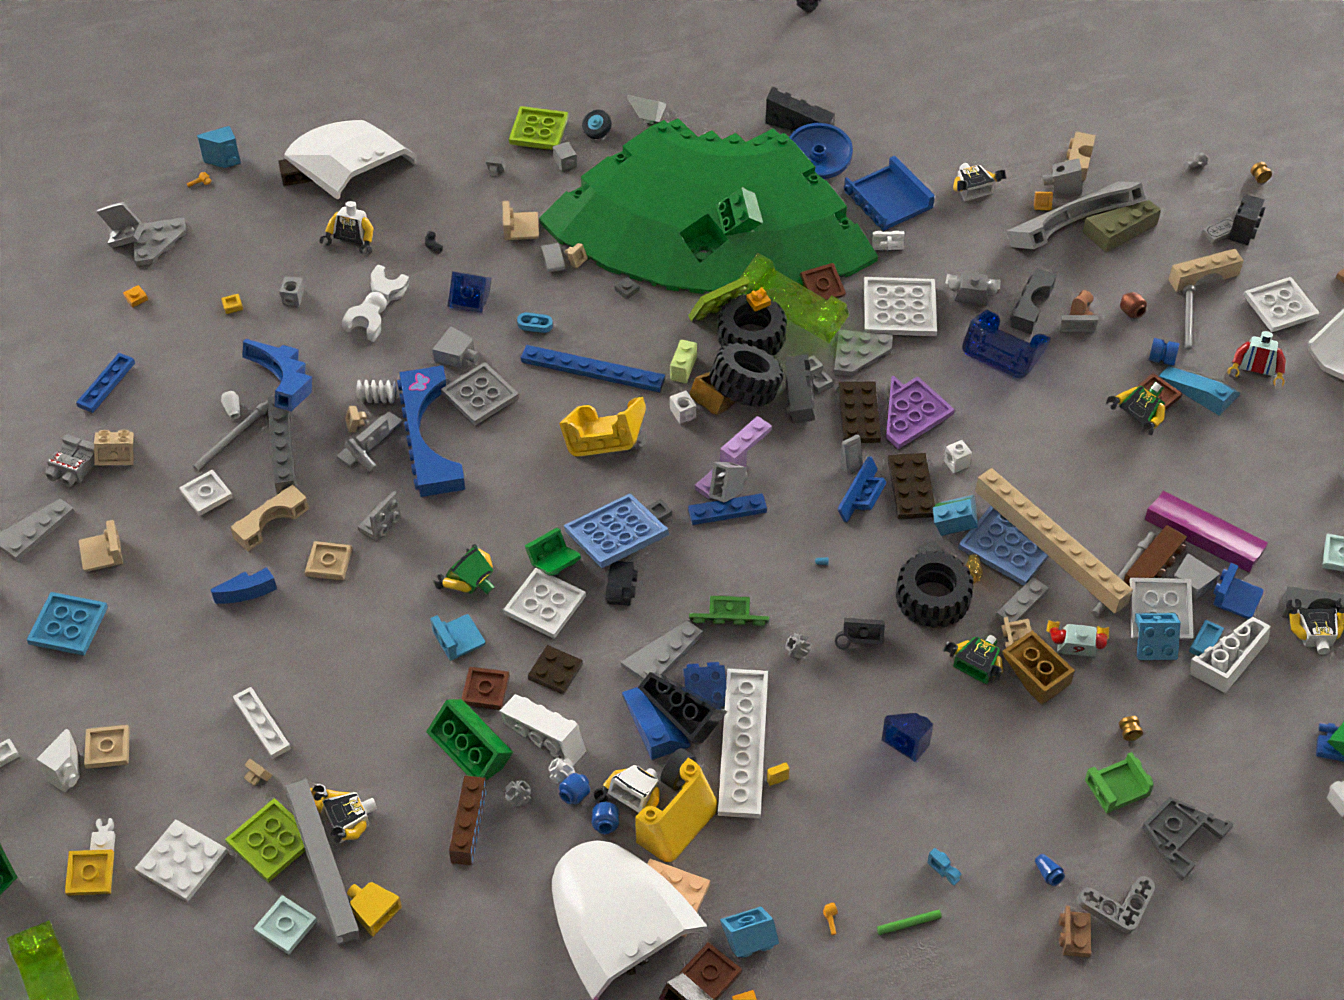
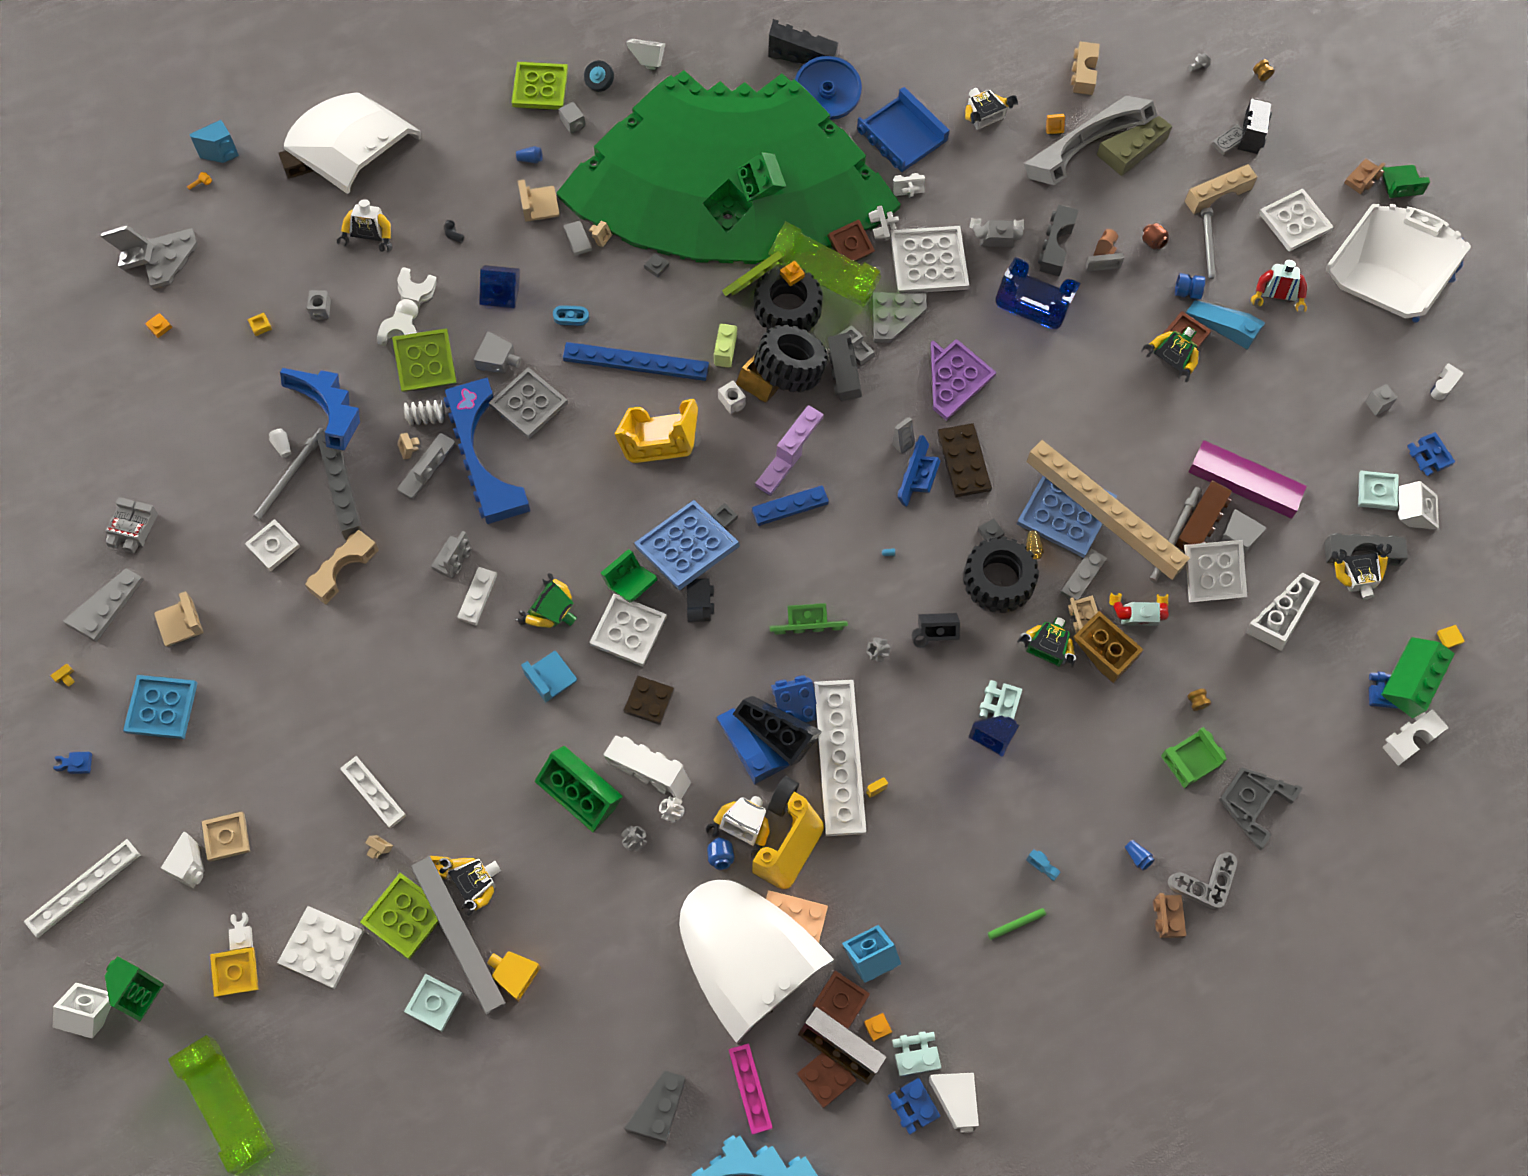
camera: 10 degrees left, 15 degrees up
(105, 382) = (147, 430): blue plate -> none
(113, 448) = (169, 504): tan bracket -> none
(244, 587) = (330, 647): blue slope -> none
(328, 560) = (408, 606): tan tile -> none
(360, 455) = (420, 487): light grey axle -> none
(384, 345) = (424, 360): none -> lime plate
(398, 558) = (477, 596): none -> white plate
(467, 820) = (590, 873): reddish brown brick -> none
(485, 688) = (585, 729): copper plate -> none
(495, 165) = (502, 135): light grey tile -> none
(519, 184) = (530, 155): none -> blue cone
(574, 788) = (687, 827): blue head -> none
(663, 652) = (747, 673): light grey wing -> none
(727, 480) = (787, 478): light grey torso -> none
(829, 911) = (942, 922): light orange hand -> none
(853, 262) = (878, 215): none -> white hips
(859, 411) = (904, 383): dark brown plate -> none
(927, 705) = (1007, 701): none -> light aqua plate
(956, 515) = (1011, 489): dark azure slope -> none
(957, 456) = (1005, 424): white brick -> none
(1065, 177) = (1075, 95): light grey torso -> none
(1157, 636) = (1215, 599): dark azure bracket -> none
(1206, 637) = (1258, 595): dark azure tile -> none
(1236, 594) = (1283, 545): blue bracket -> none

